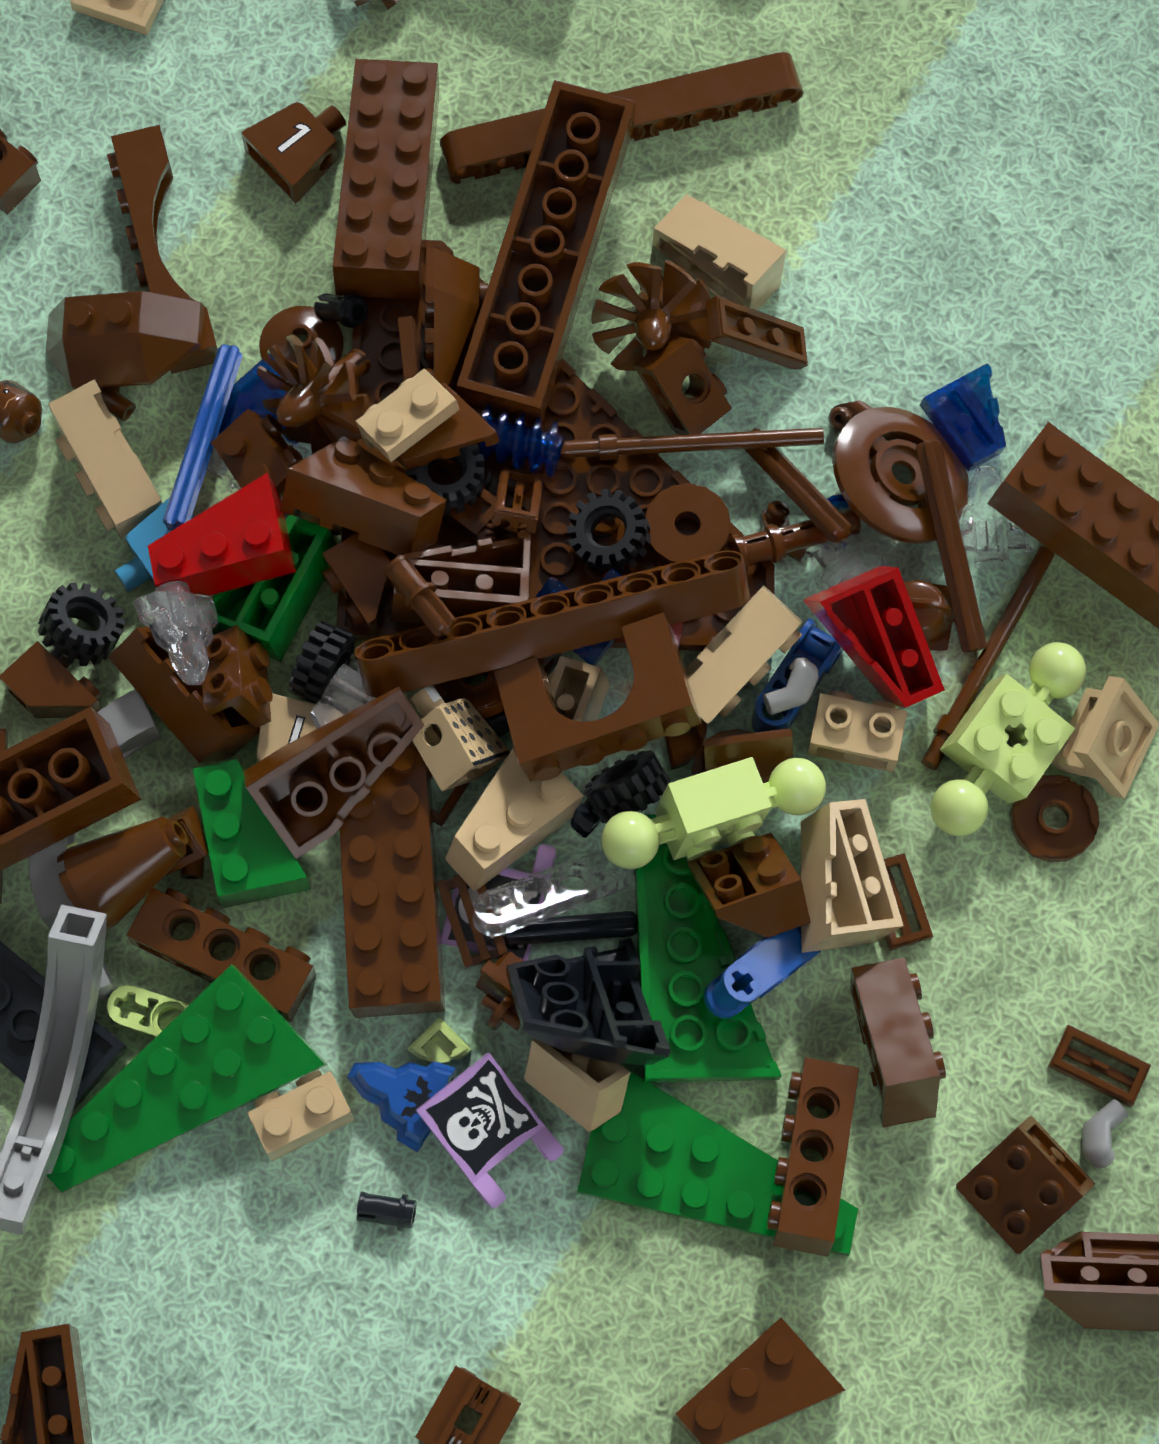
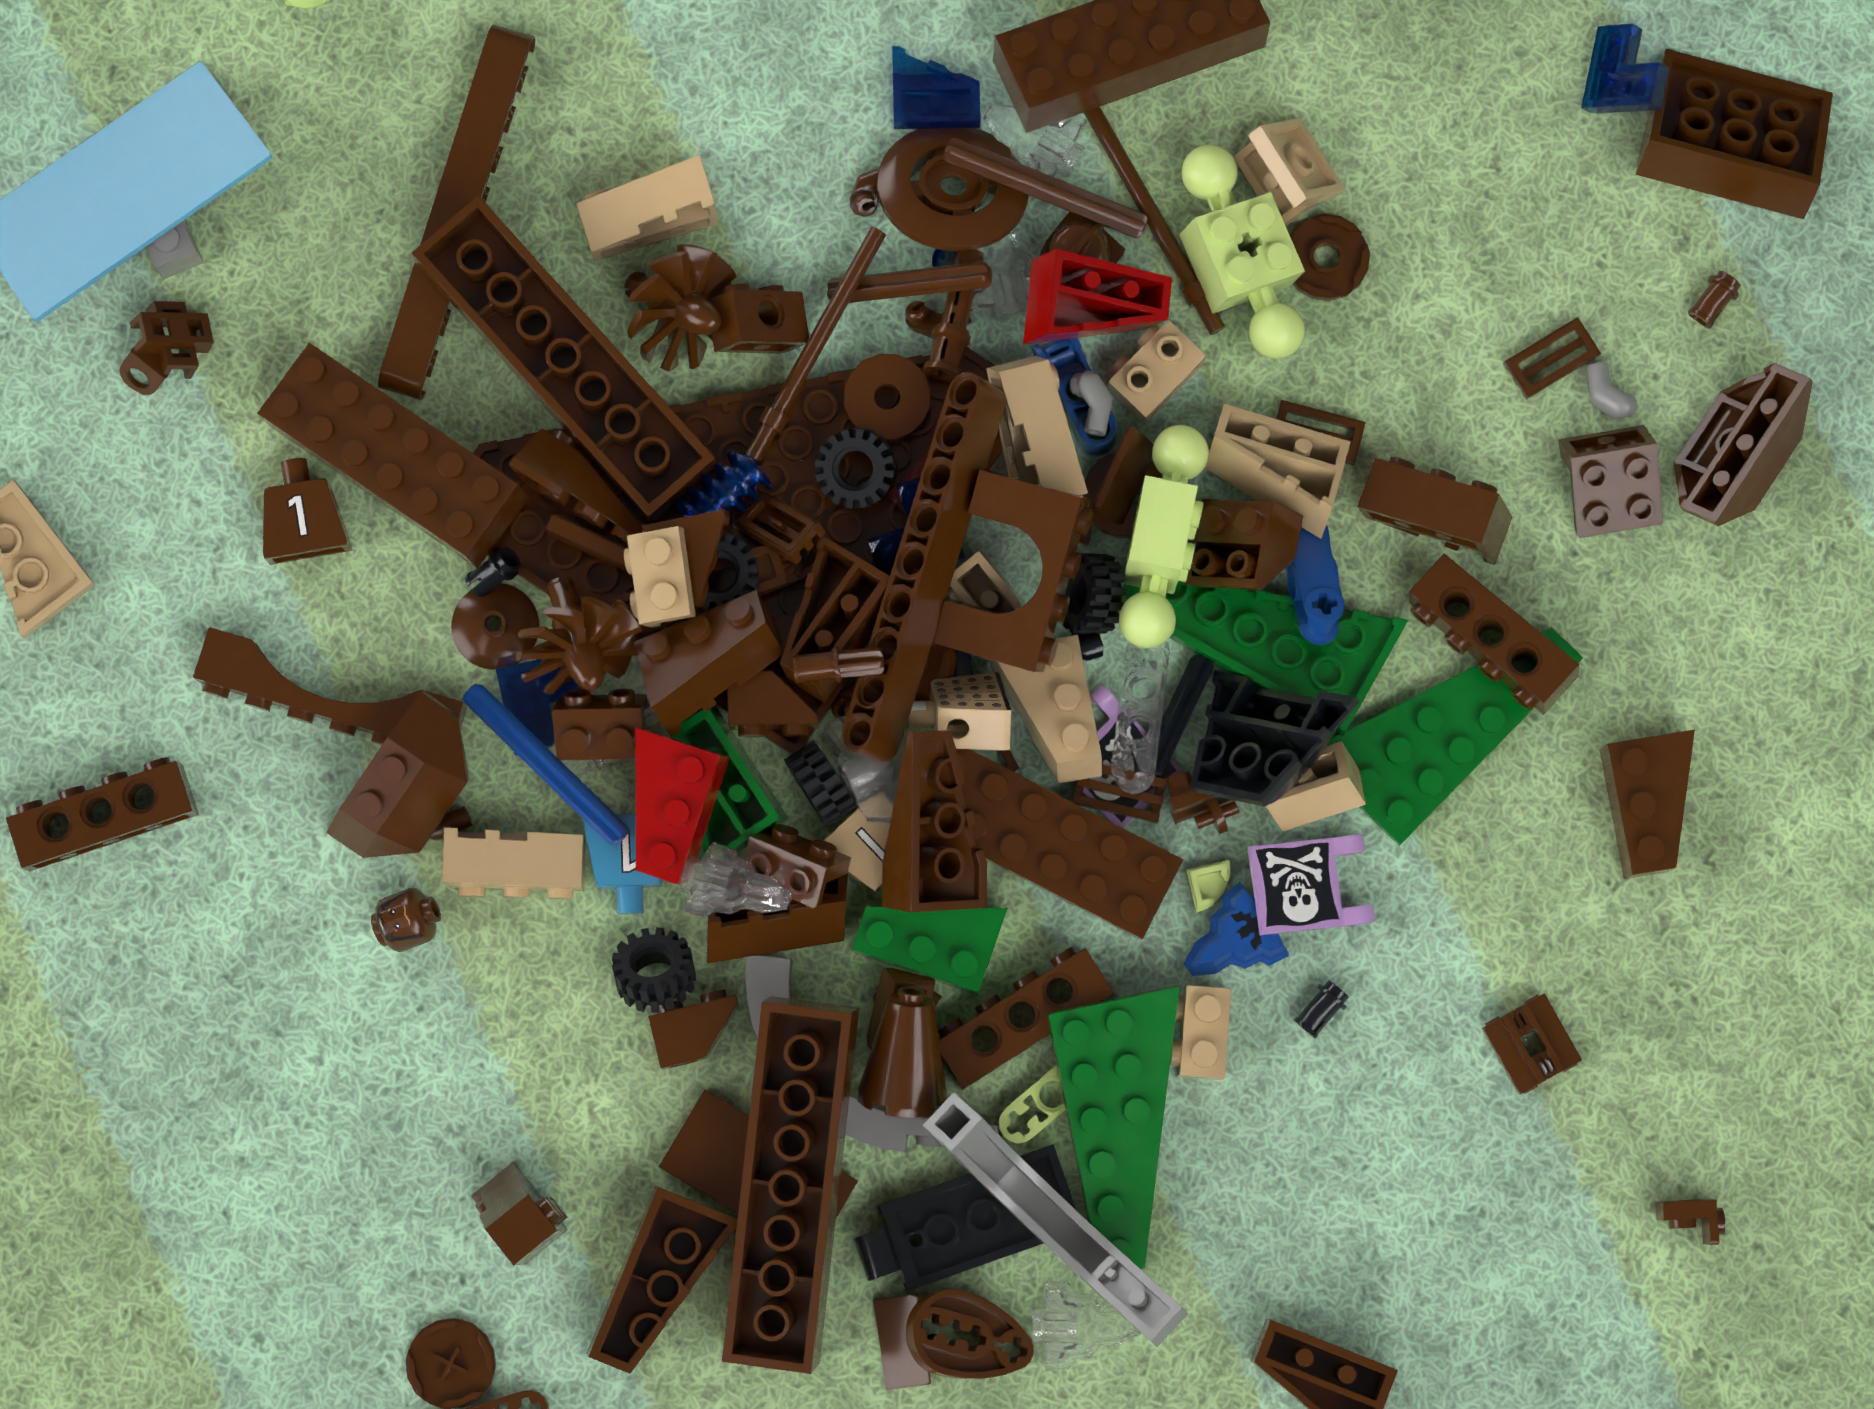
camera: 60 degrees left, 10 degrees up
(756, 333) = (750, 227): reddish brown tile -> none

